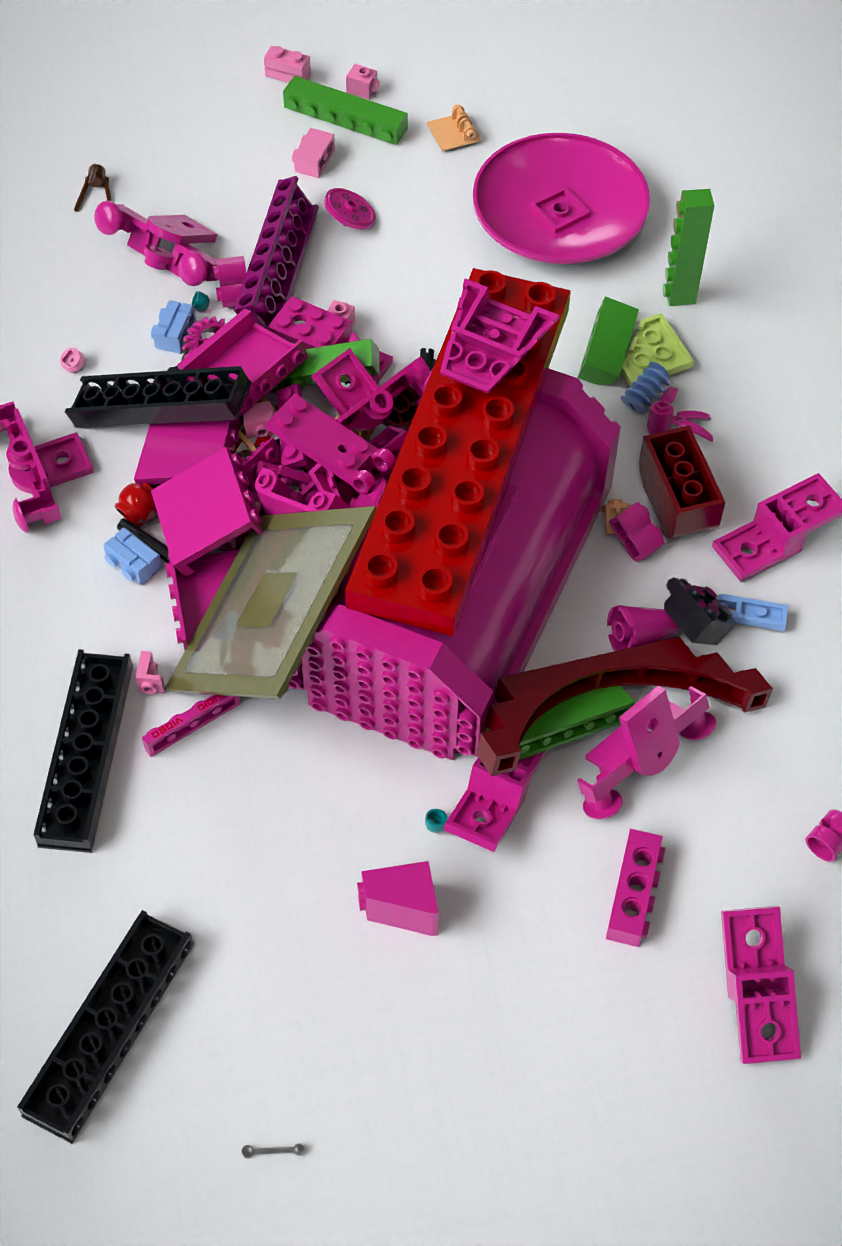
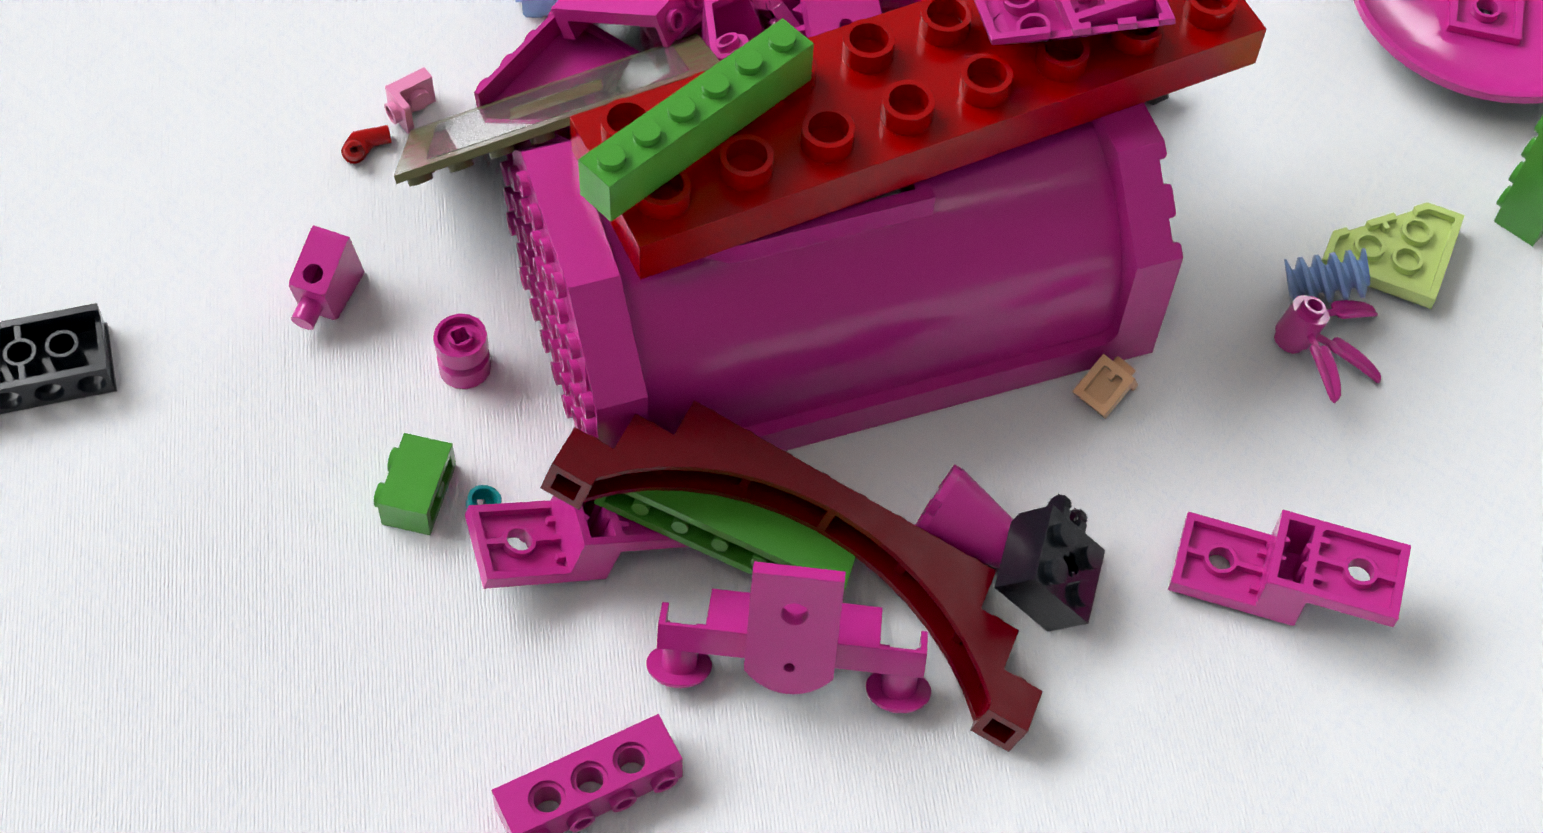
camera: 45 degrees right, 0 degrees up
(83, 753) = (260, 120): black tile -> none
(149, 715) = (362, 141): none -> red arm
(187, 722) = (377, 177): dark pink plate -> none
(231, 793) = (324, 277): none -> dark pink torso
(339, 763) = (462, 351): none -> dark pink wheel
(395, 839) = (415, 483): none -> bright green brick
(400, 897) = (340, 537): dark pink slope -> none
(421, 537) = (695, 119): none -> bright green brick
(608, 342) = (1351, 190): bright green brick -> none
(637, 531) = (1105, 417): dark pink brick -> none
(680, 483) = (1216, 403): dark red brick -> none
(756, 612) = (1135, 635): light blue plate -> none

